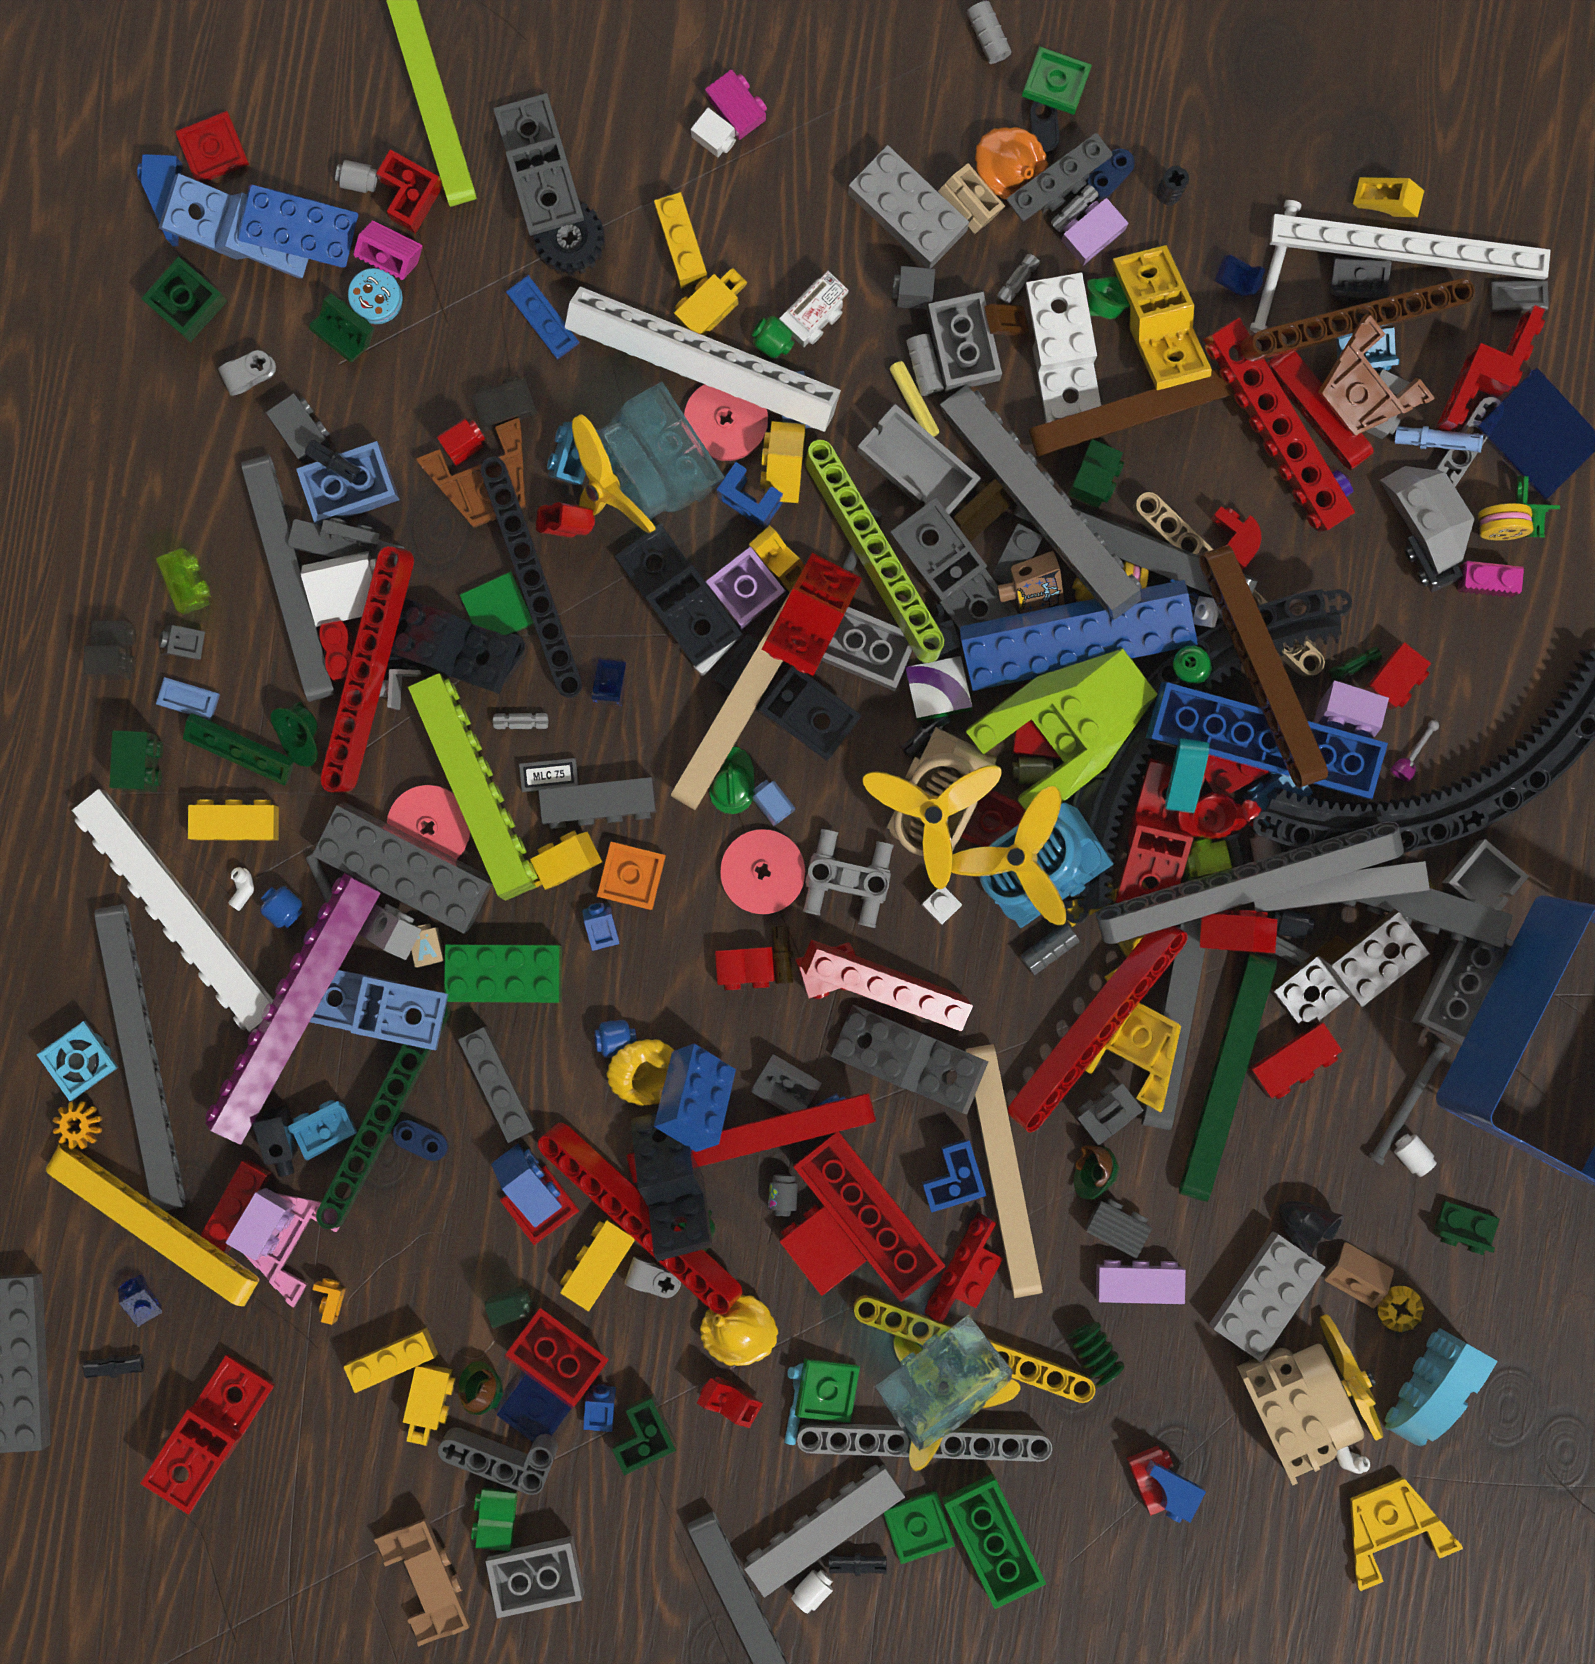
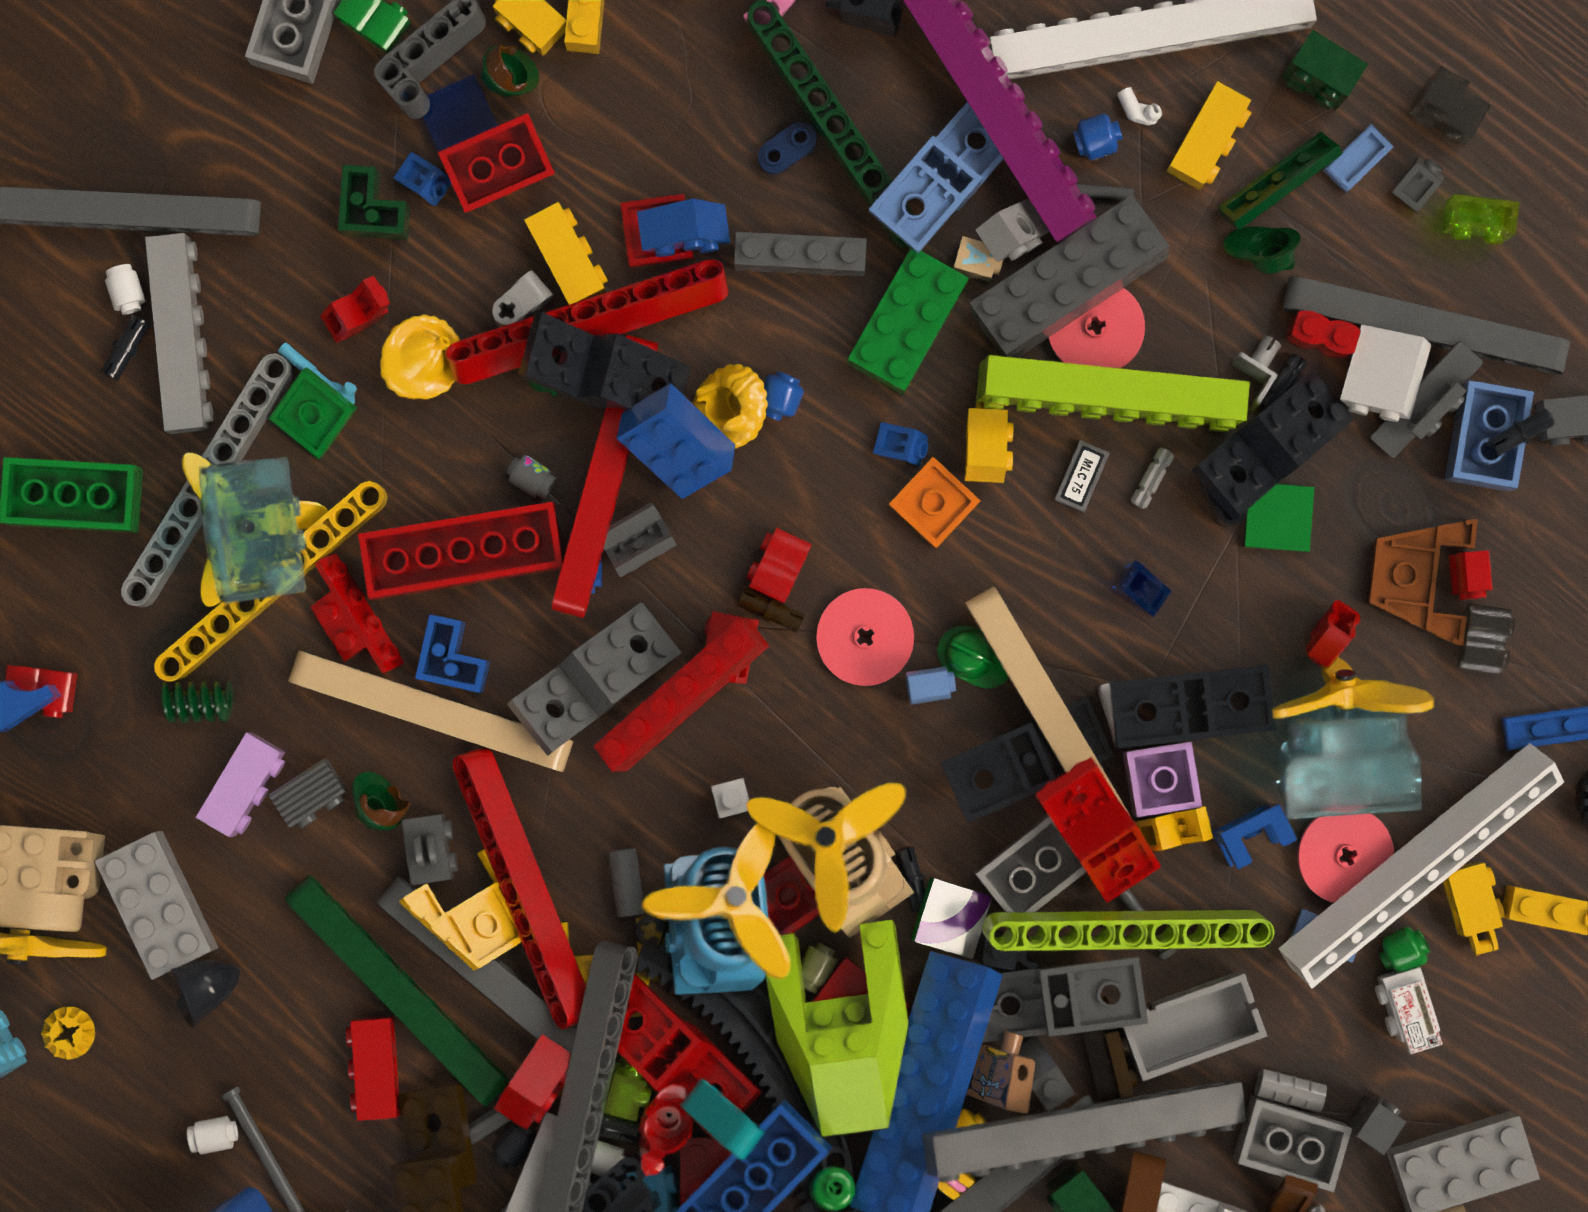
camera: 120 degrees right, 0 degrees up
(323, 1129) = (852, 57): dark azure bracket -> none
(377, 662) = (1293, 366): red beam -> none
(508, 1306) = (573, 143): clear green brick -> none
(522, 566) = (1308, 566): black beam -> none
(565, 463) = (1391, 666): dark azure brick -> none
(597, 801) = (1028, 510): dark grey brick -> none
(783, 459) = (1272, 890): yellow brick -> none
(821, 1249) = (455, 484): red brick -> none
(848, 878) = (810, 719): light grey piece -> none
(913, 398) = (1262, 1059): light yellow axle -> none
(918, 1527) = (127, 429): green tile -> none
(1360, 1275) = (123, 1011): medium nougat panel -> none
(1466, 1226) = (111, 1146): dark green bracket -> none

